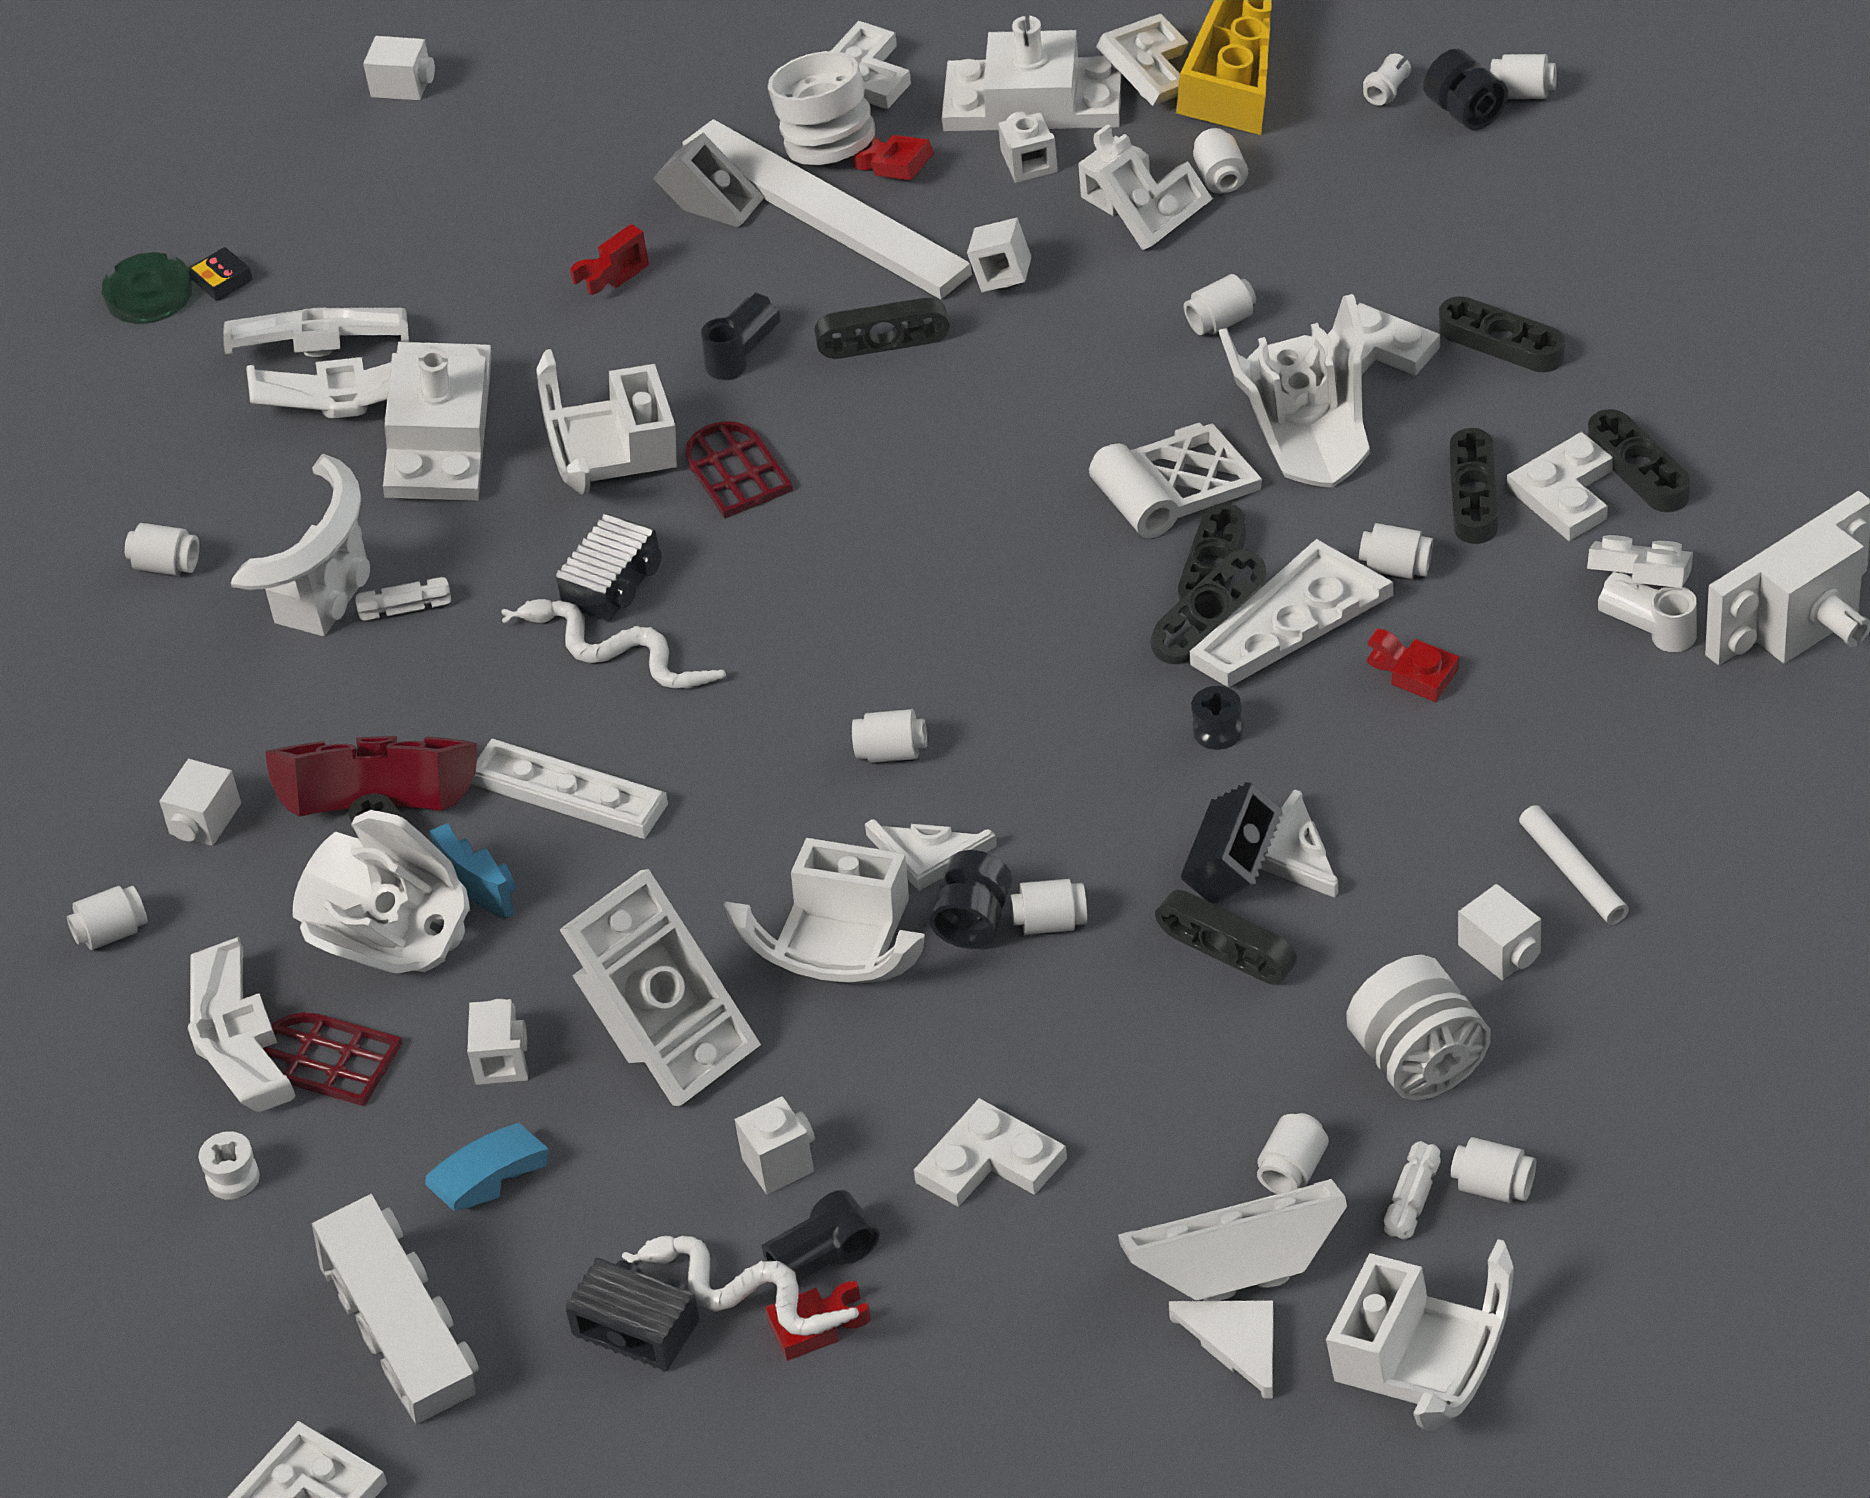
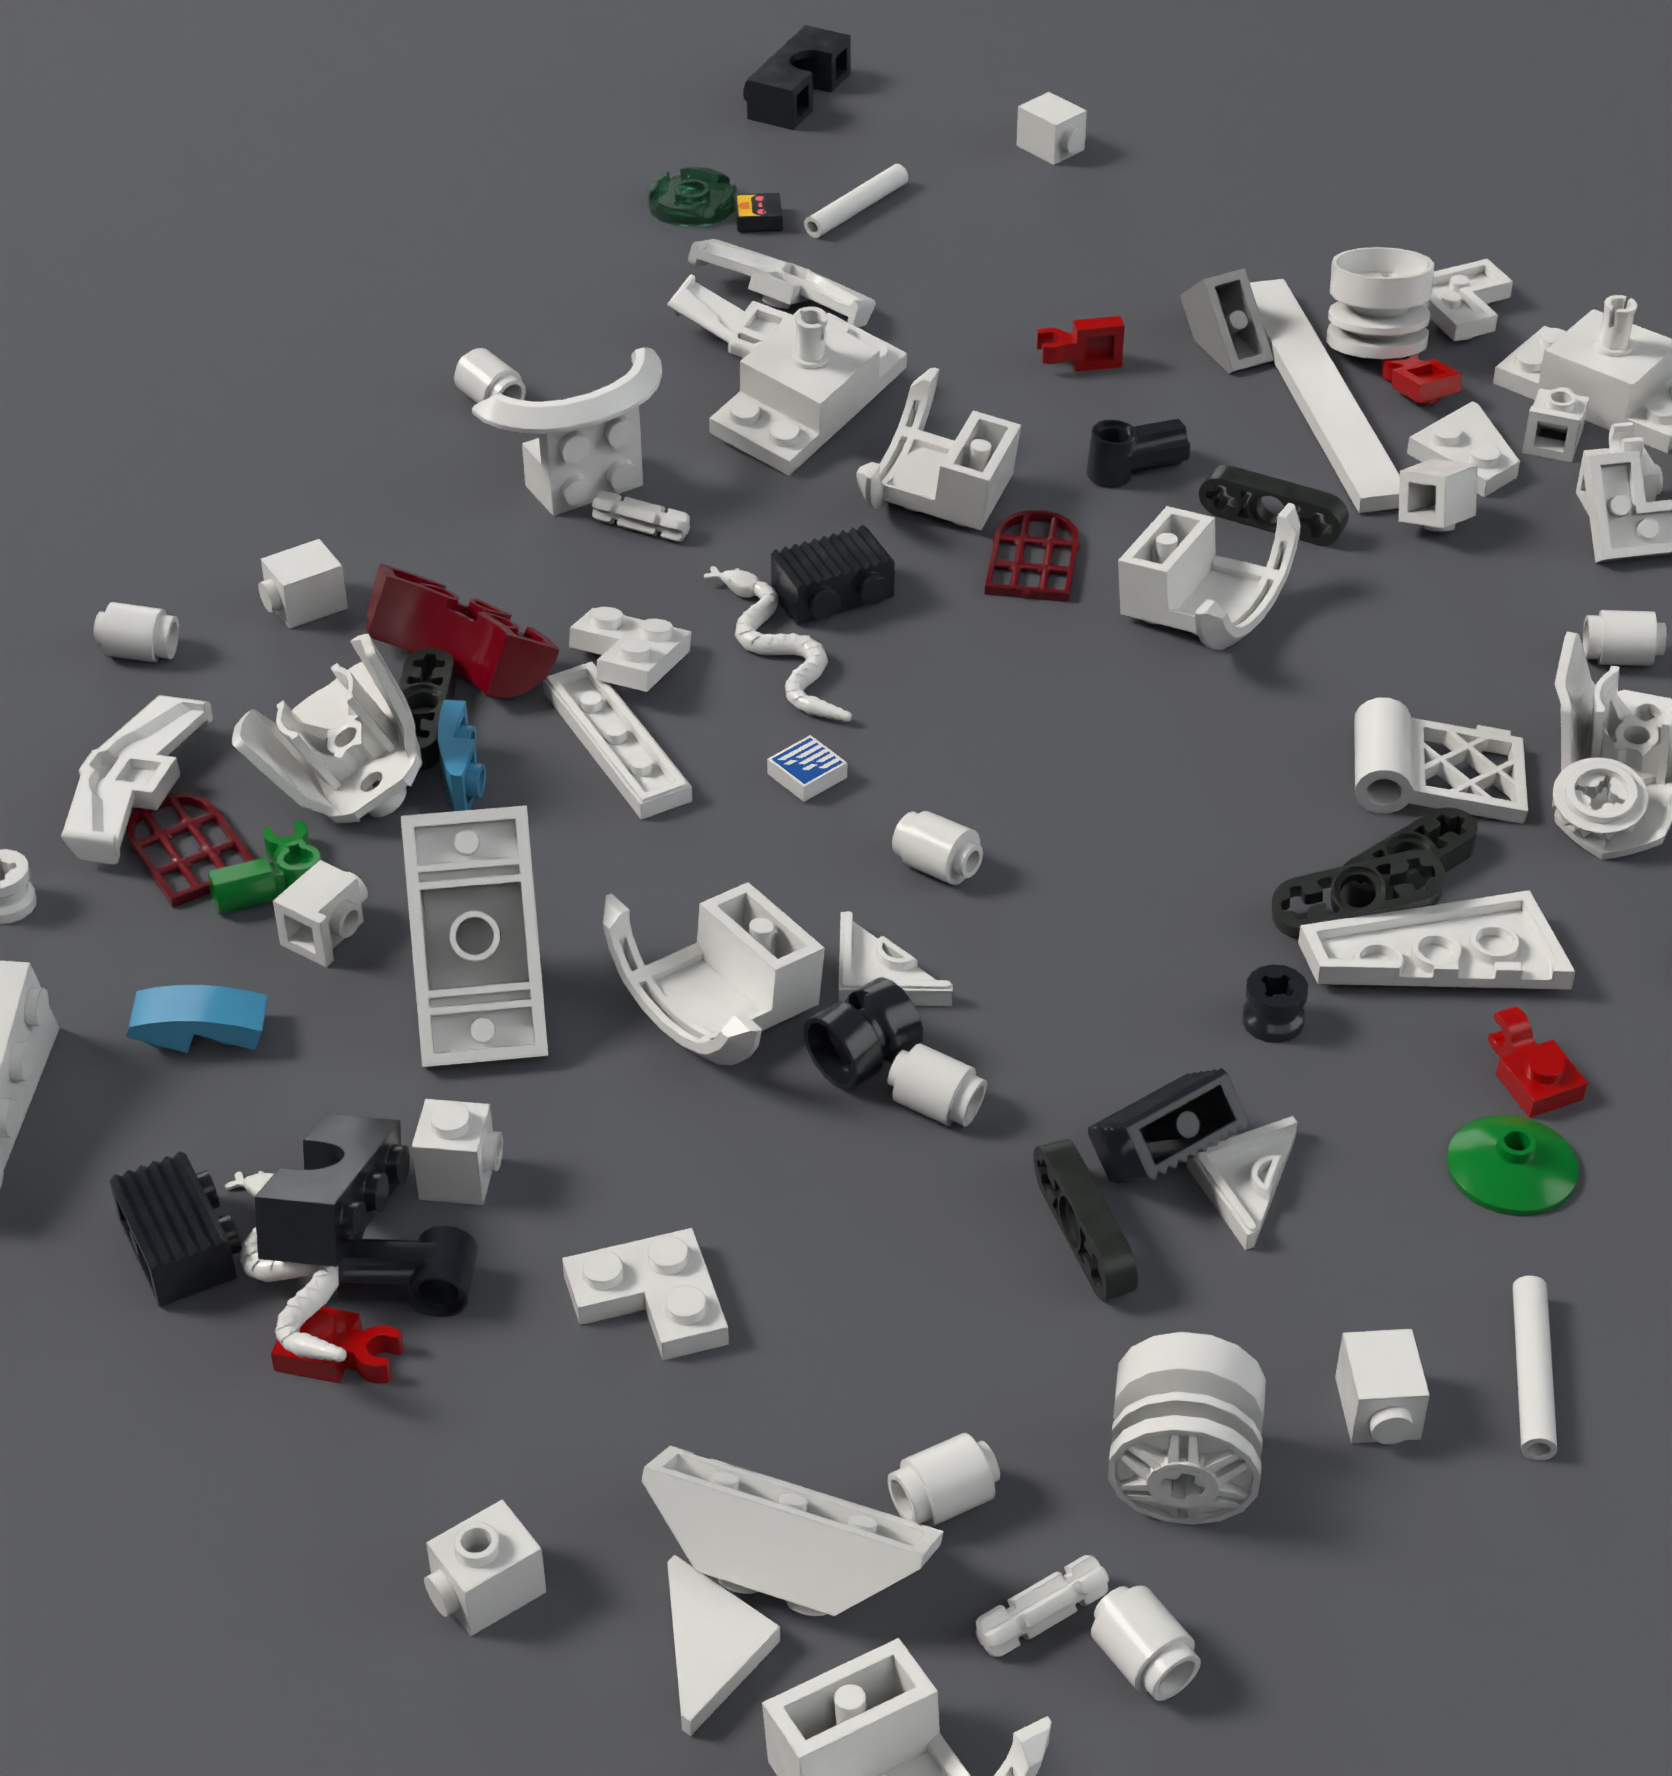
camera: 30 degrees right, 5 degrees down
(127, 125) = (784, 85): none -> black arch
(293, 220) = (856, 201): none -> white piece
(434, 1026) = (261, 881): none -> green bar
(519, 703) = (632, 649): none -> white plate
(732, 730) = (807, 768): none -> white tile
(733, 1215) = (345, 1182): none -> black arch
(895, 428) = (1181, 583): none -> white piece
(975, 199) = (1471, 439): none -> white wing
(1063, 1382) = (484, 1568): none -> white brick
(1323, 430) = (1584, 780): none -> white gear
(1396, 551) = (1608, 947): white brick -> none
(1451, 740) = (1512, 1165): none -> green dish

